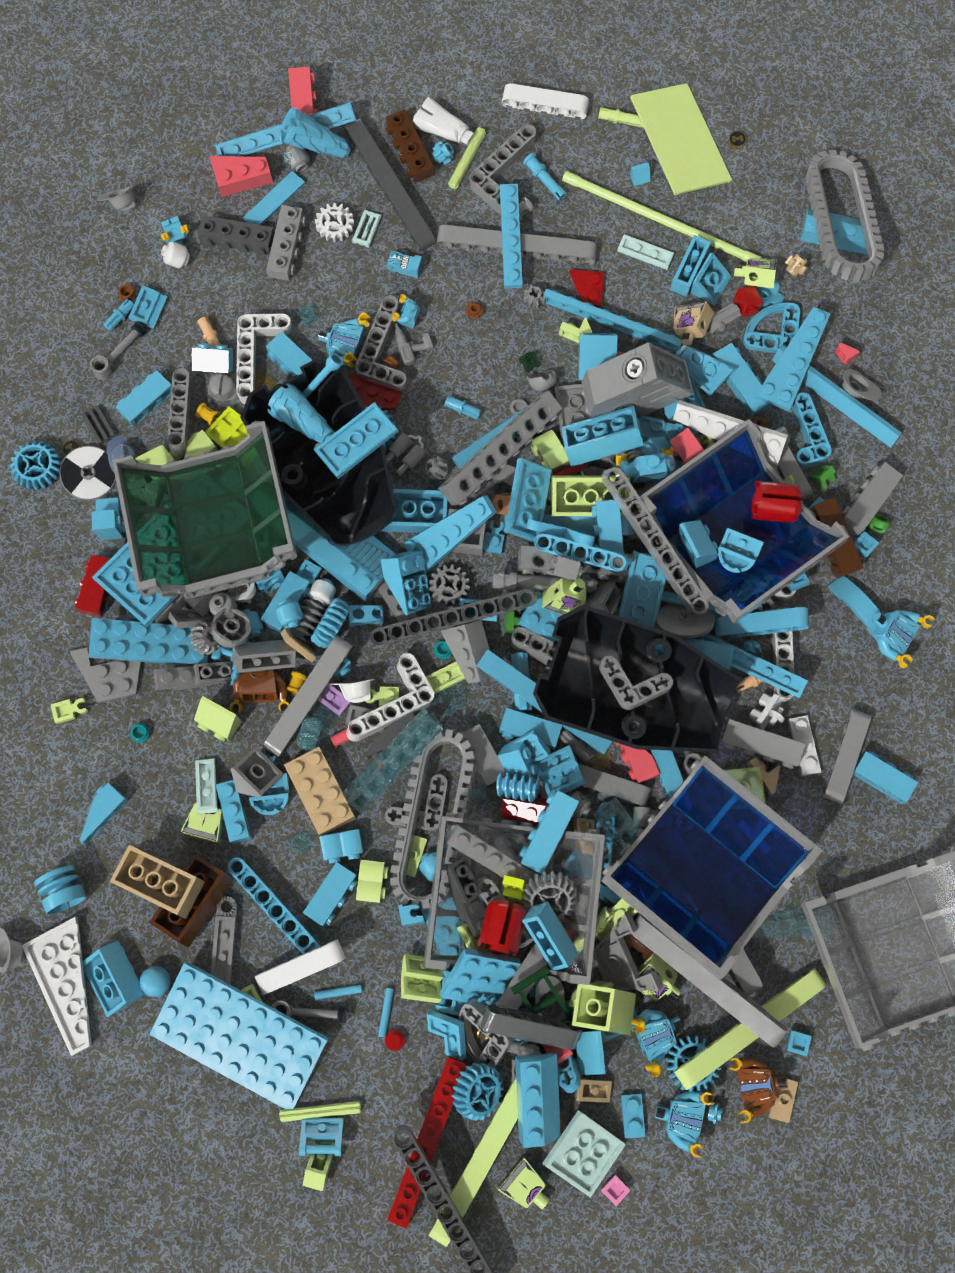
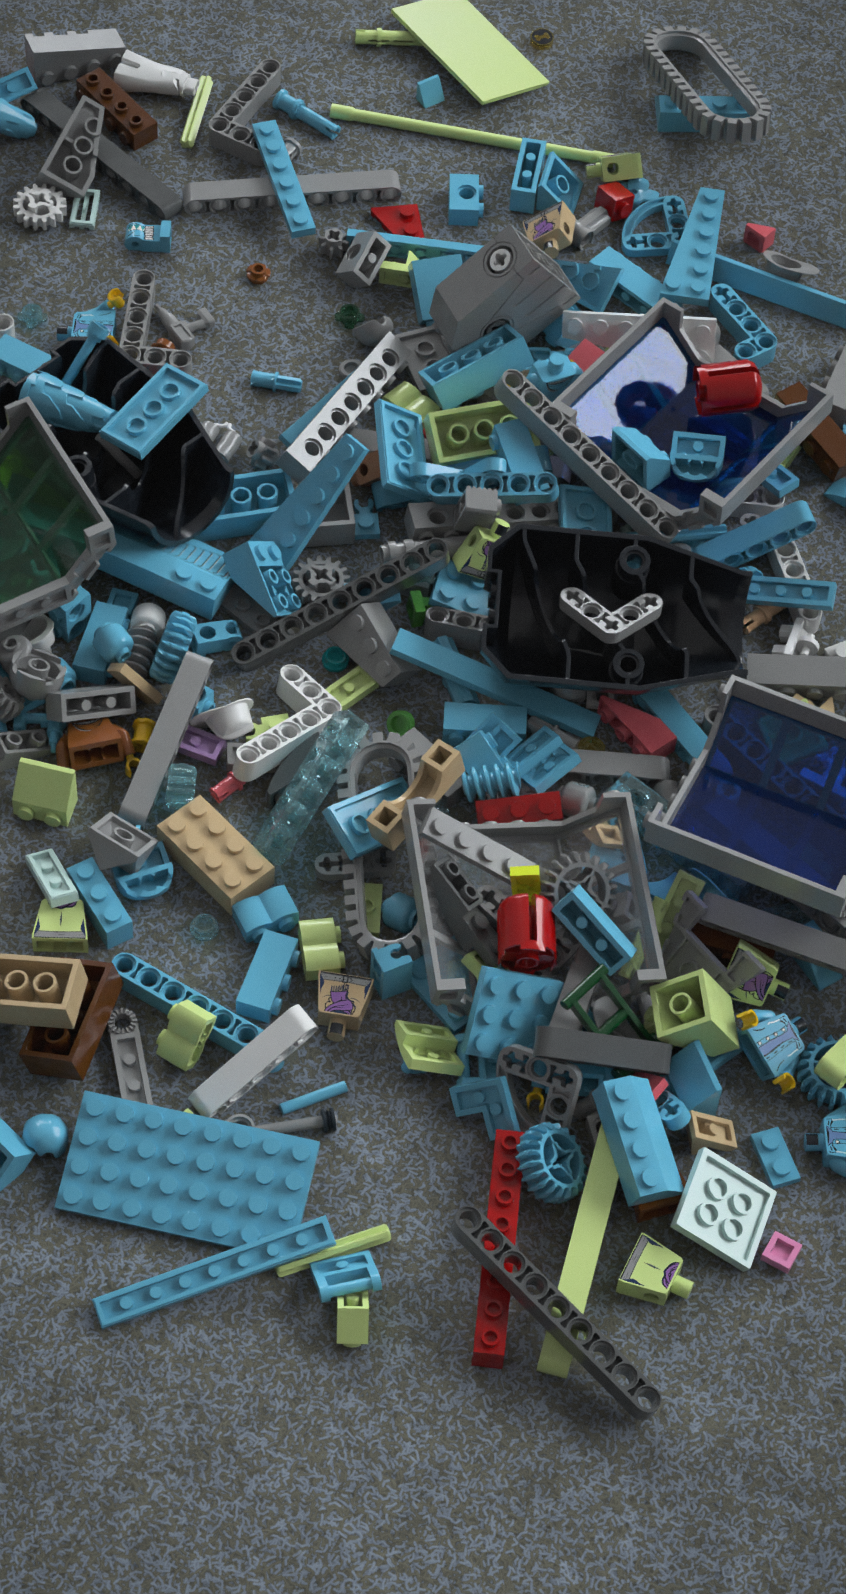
camera: 20 degrees left, 20 degrees down
(238, 1111) = (214, 1272): none -> medium azure tile
(262, 930) = (185, 1035): none -> yellowish green brick
(366, 186) = (74, 156): none -> light grey wedge
(374, 927) = (342, 1002): none -> torso
(386, 1012) = (389, 1108): medium azure piece -> none
(390, 92) = (72, 54): none -> light grey wedge
(394, 1040) = (412, 1138): red plate -> none
(408, 313) = (171, 290): medium azure piece -> none
(428, 795) = (349, 817): none -> medium azure tile
(443, 152) = (163, 108): medium azure gear -> none
(473, 714) = (400, 722): none -> bright green tile
(473, 786) = (436, 774): none -> tan arch
(545, 100) = (280, 33): white beam -> none
(549, 831) = (552, 811): medium azure brick -> none
(550, 318) = (363, 259): none -> light grey brick
(639, 267) = (464, 200): none -> medium azure brick
(645, 252) = (440, 172): light aqua tile -> none
(796, 264) = (663, 153): tan gear -> none
(822, 474) = (775, 371): bright green tile -> none

